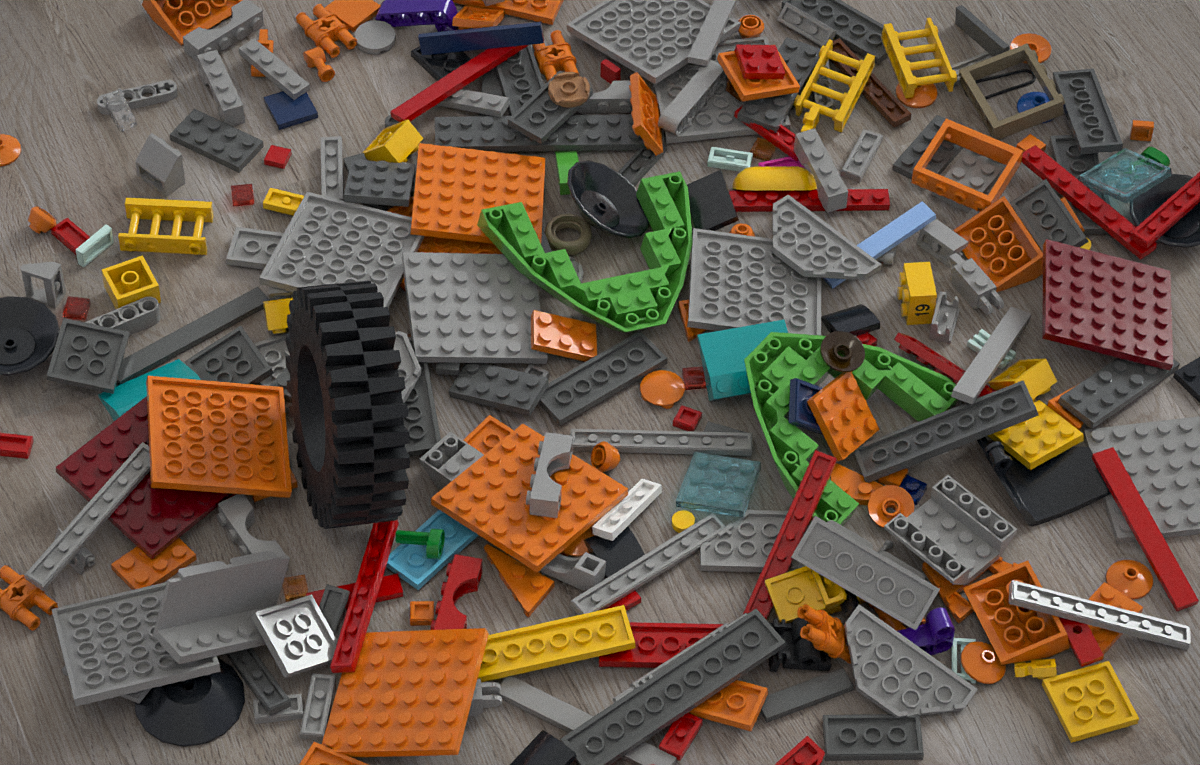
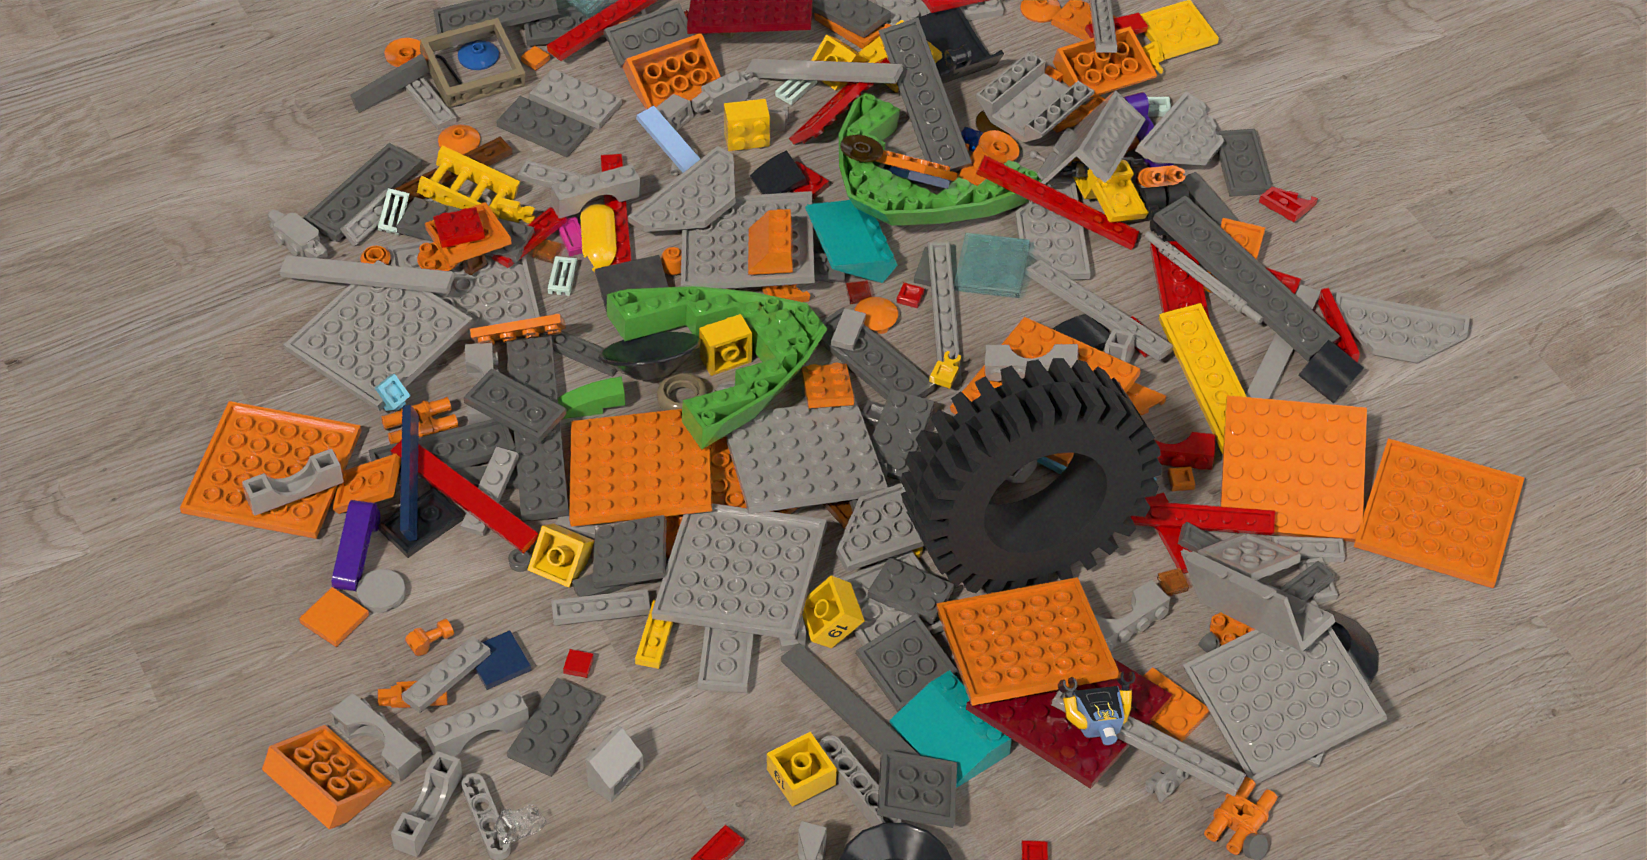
camera: 95 degrees left, 0 degrees up
(76, 308) = (832, 825): clear red tile -> none
(94, 245) = (736, 819): light aqua tile -> none
(115, 463) = (1098, 709): none -> torso
(127, 49) = (439, 784): none -> light grey arch
(166, 210) = (679, 764): yellow fence -> none
(242, 195) = (640, 690): clear red tile -> none
(326, 30) = (374, 635): orange pin -> none
(569, 89) = (496, 385): medium nougat tile -> none
(572, 425) = (946, 371): none -> yellow plate
(574, 29) = (392, 393): none -> medium azure bracket
(605, 457) = (974, 347): orange cone -> none
(610, 71) = (443, 372): red tile -> none
(616, 253) = (725, 344): none -> yellow brick
(627, 510) = (1010, 316): white plate -> none
(632, 355) = (848, 329): none -> light grey tile
(682, 520) = (1036, 292): yellow tile -> none
(692, 98) = (492, 295): light grey beam -> none
(732, 293) = (771, 243): none -> orange slope
(809, 33) = (388, 228): none -> light aqua tile
(903, 67) = (431, 139): yellow fence -> none
(977, 143) = (568, 116): orange window -> none
(982, 663) = (1154, 90): orange dish -> none

